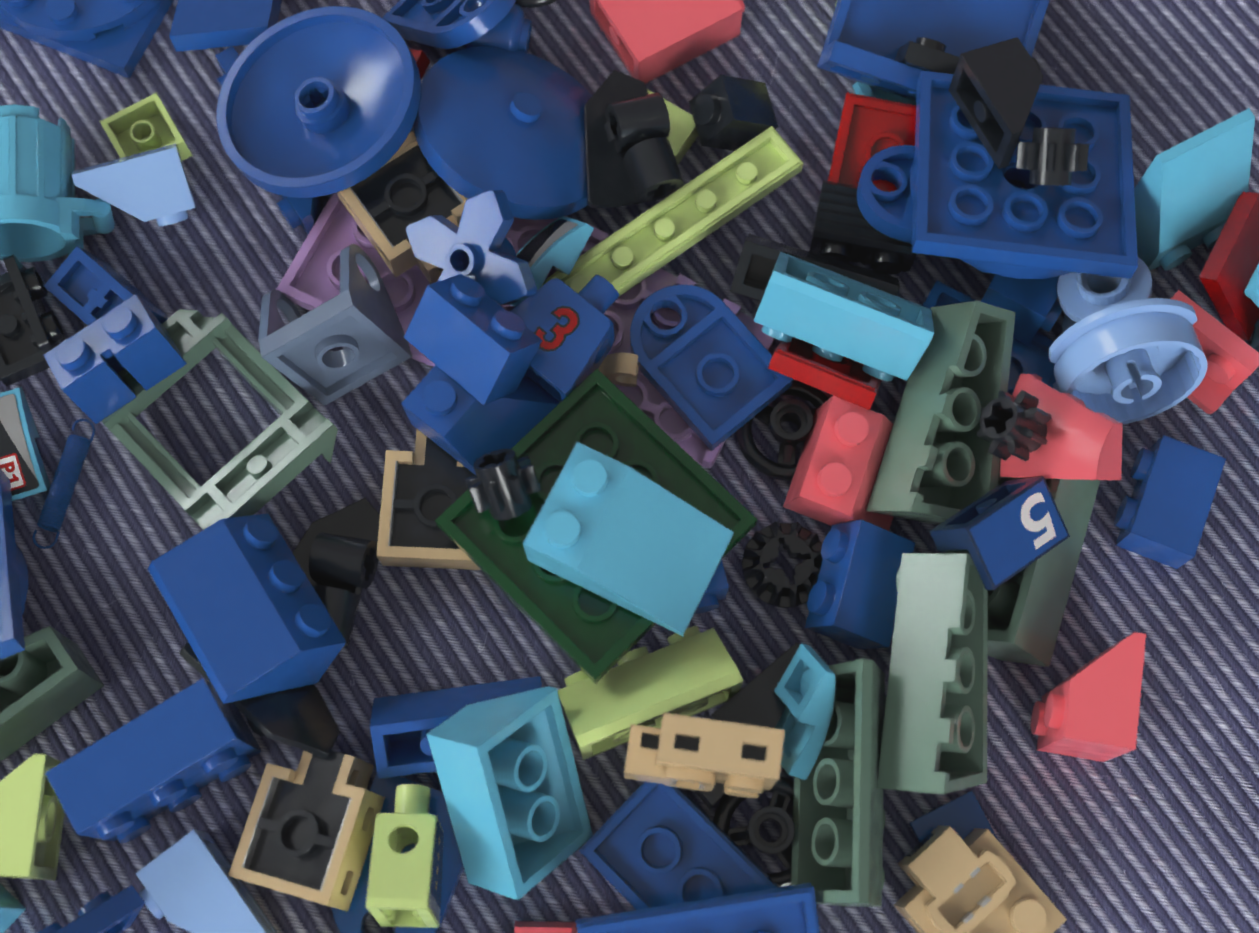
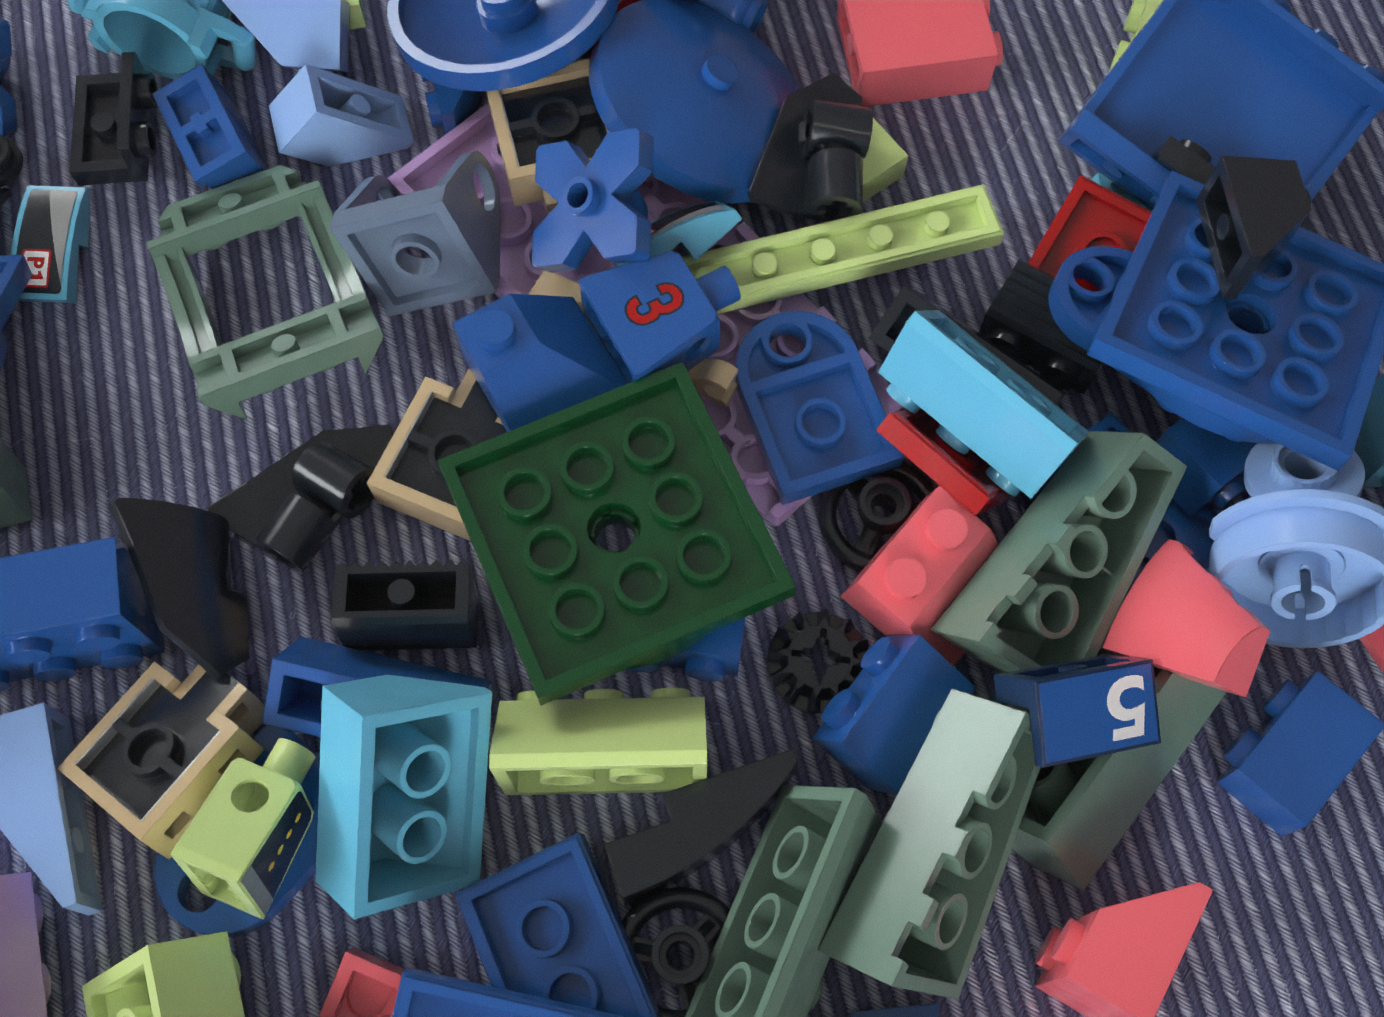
camera: 20 degrees right, 5 degrees down
(64, 483) = (88, 300): blue piece -> none
(121, 339) = (195, 169): blue piece -> none
(210, 251) = (337, 119): none -> light blue slope
(247, 608) = (201, 487): blue slope -> none
(449, 643) = (405, 606): none -> black brick
(472, 338) = (556, 280): blue brick -> none
(503, 484) = (521, 443): black gear -> none
(627, 539) = (634, 552): medium azure slope -> none
(704, 752) = (627, 829): tan piece -> none
(732, 112) = (945, 155): black brick -> none
(809, 699) = (778, 815): medium azure slope -> none
(1013, 425) = (1138, 589): black gear -> none
(1052, 156) = (1291, 298): black gear -> none

